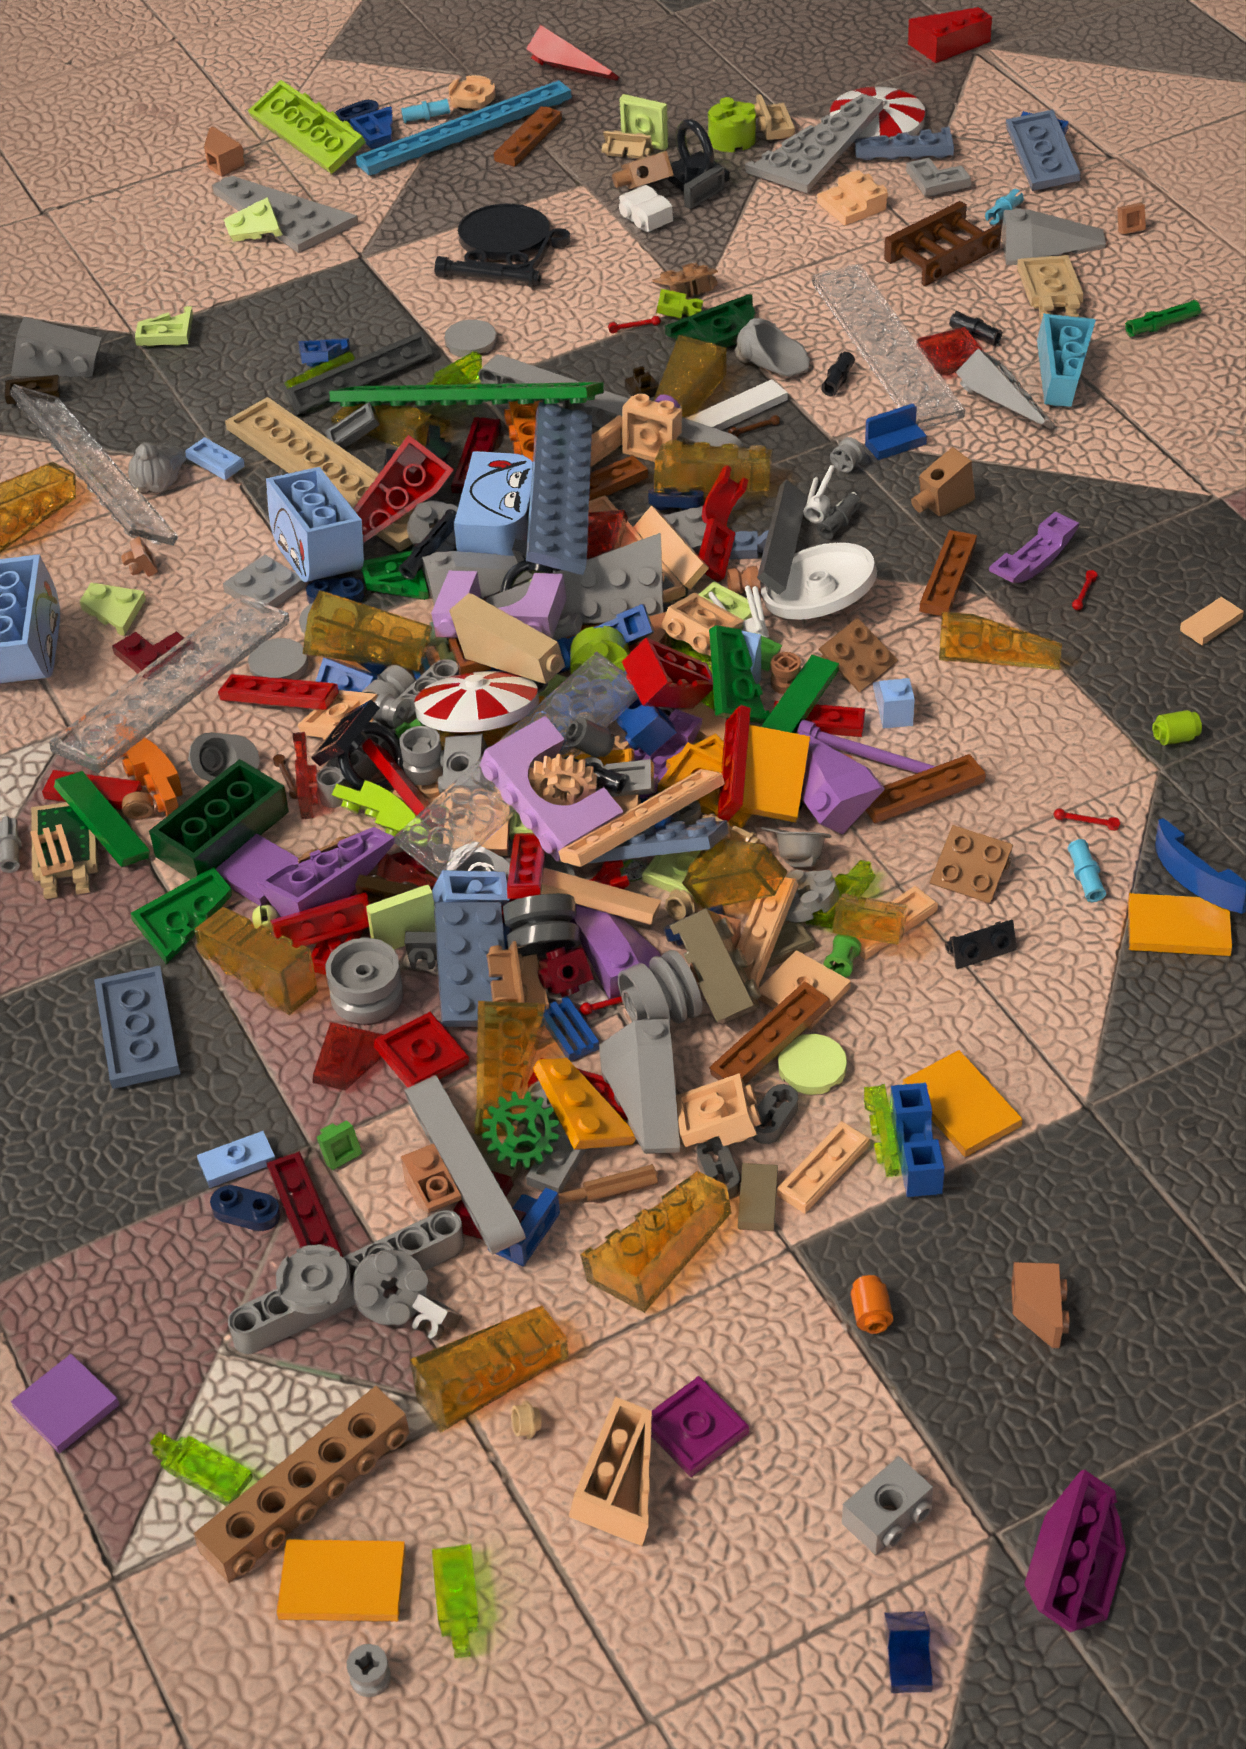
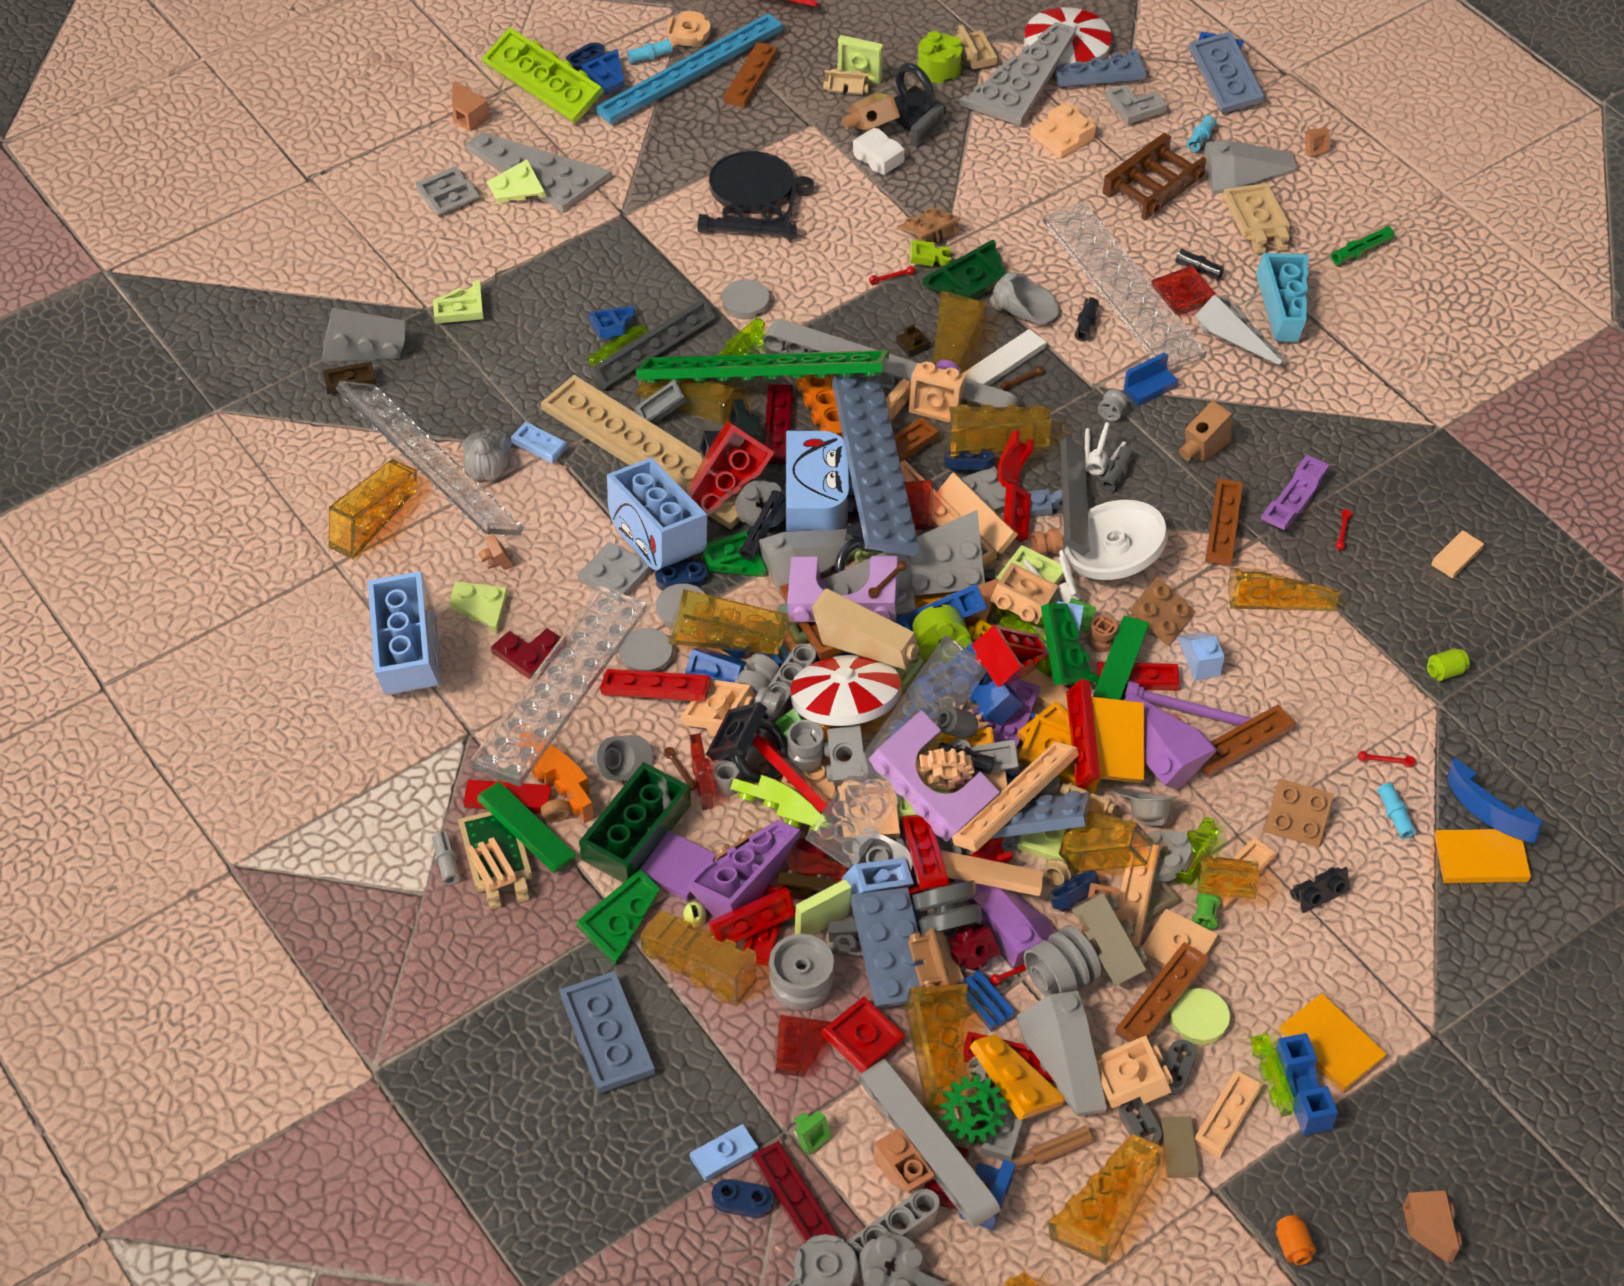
camera: 10 degrees left, 5 degrees up
(181, 226) = (446, 191): none -> light grey slope
(527, 606) = (874, 592): none -> reddish brown hinge

